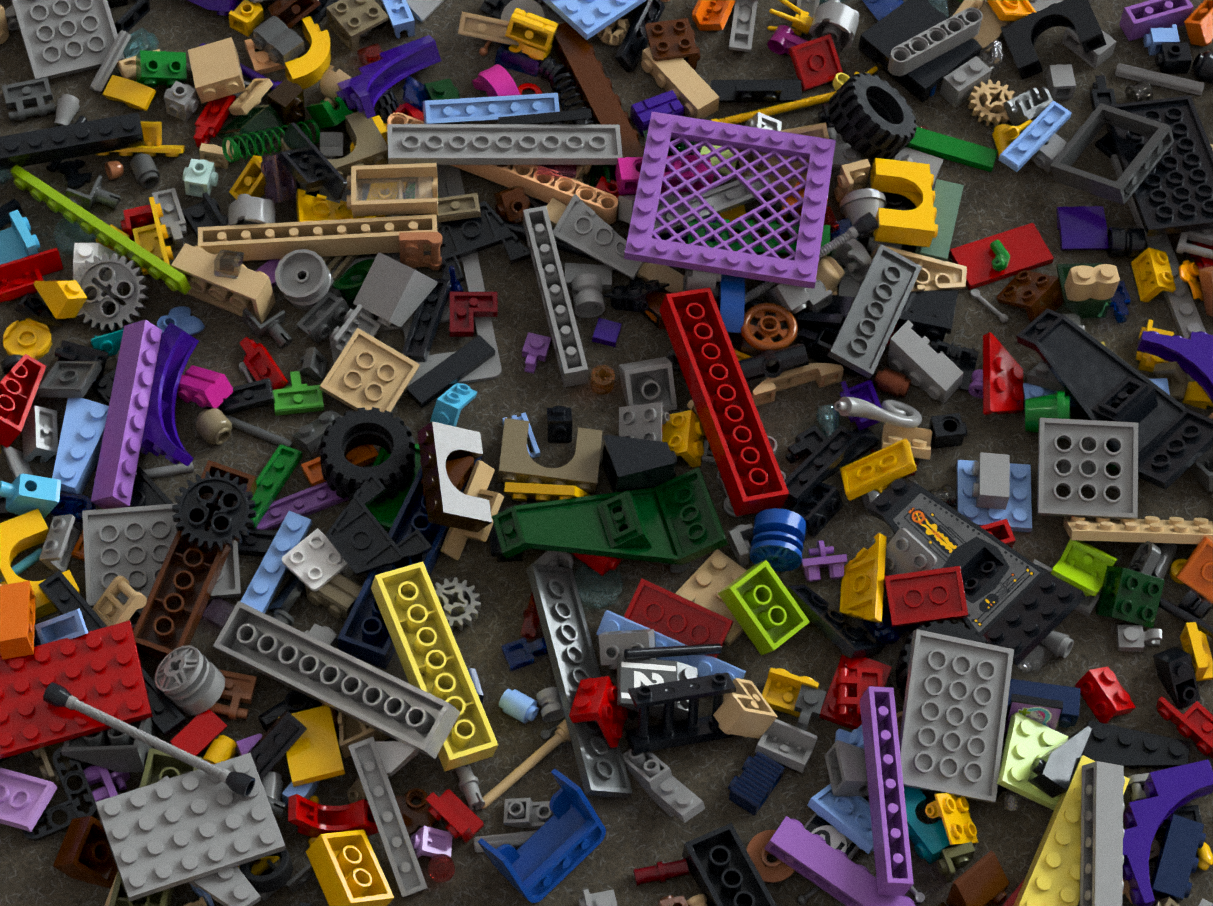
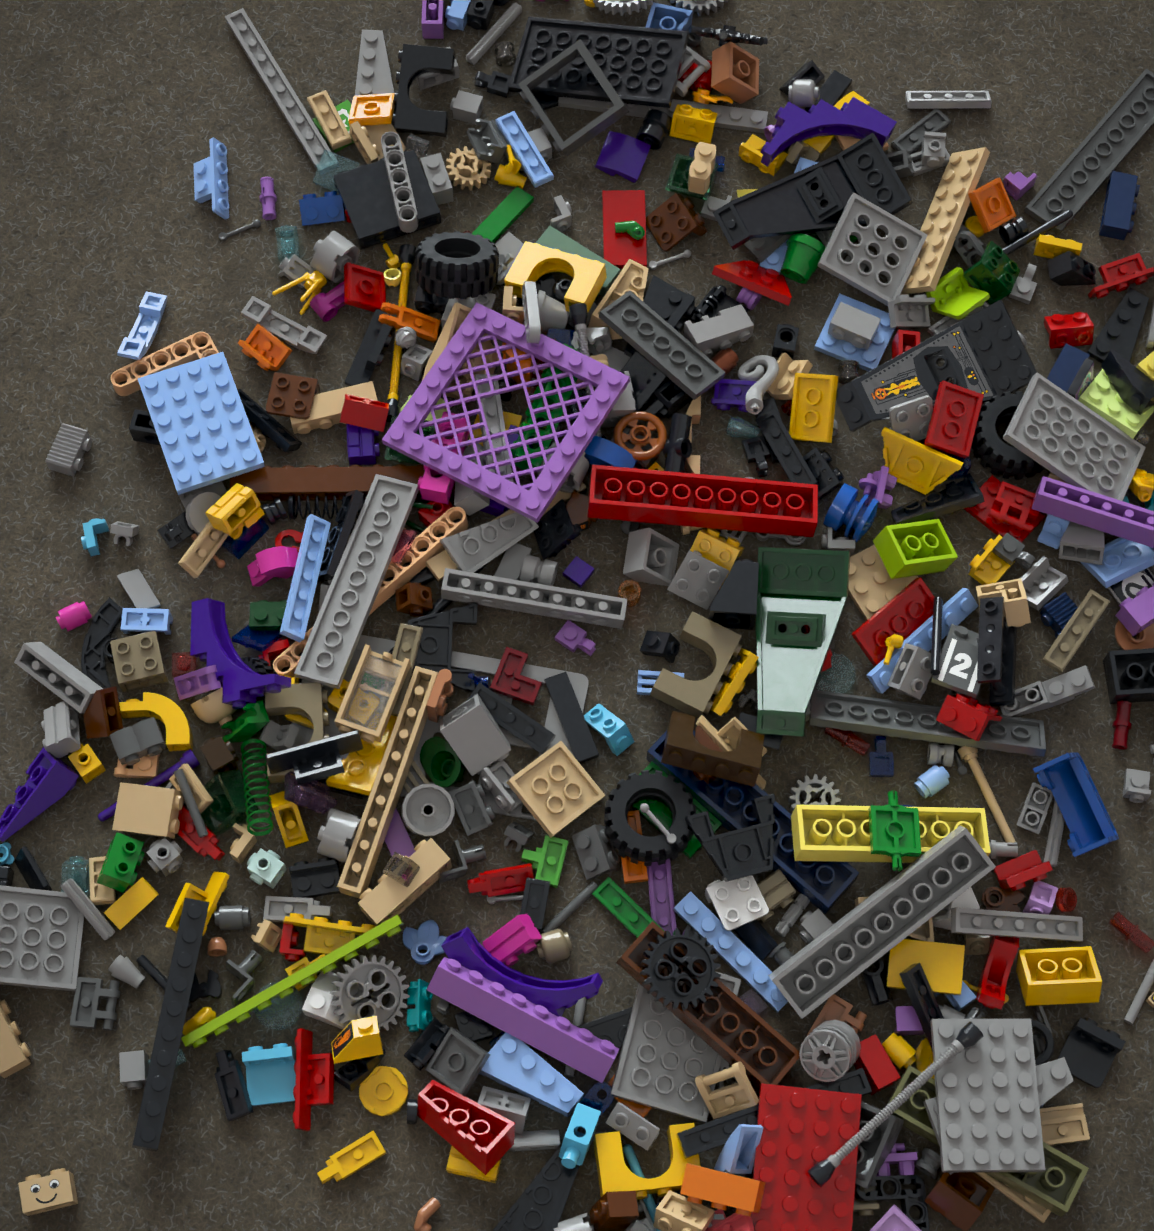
camera: 65 degrees left, 10 degrees up
(46, 178) = (204, 1015): none -> yellow arm
(136, 198) = (267, 935): none -> tan tile
(235, 98) = (190, 802): none -> dark grey bar
(309, 618) = (792, 915): none -> light grey axle
(346, 468) = (671, 838): none -> light grey hinge
(352, 62) = (197, 682): none -> medium lavender plate
(430, 655) = (894, 831): none -> green plate
(652, 619) = (892, 642): none -> yellow hand
(681, 95) = (364, 412): none -> red hinge
(741, 787) = (1075, 631): none -> dark tan tile
(778, 108) = (406, 337): none -> light grey plate
(798, 103) = (424, 325): none -> orange hinge
(843, 181) = (531, 312): none -> light grey beam
(986, 197) = (563, 211): none -> light grey bracket
(1038, 530) = (910, 312): none -> light grey bracket

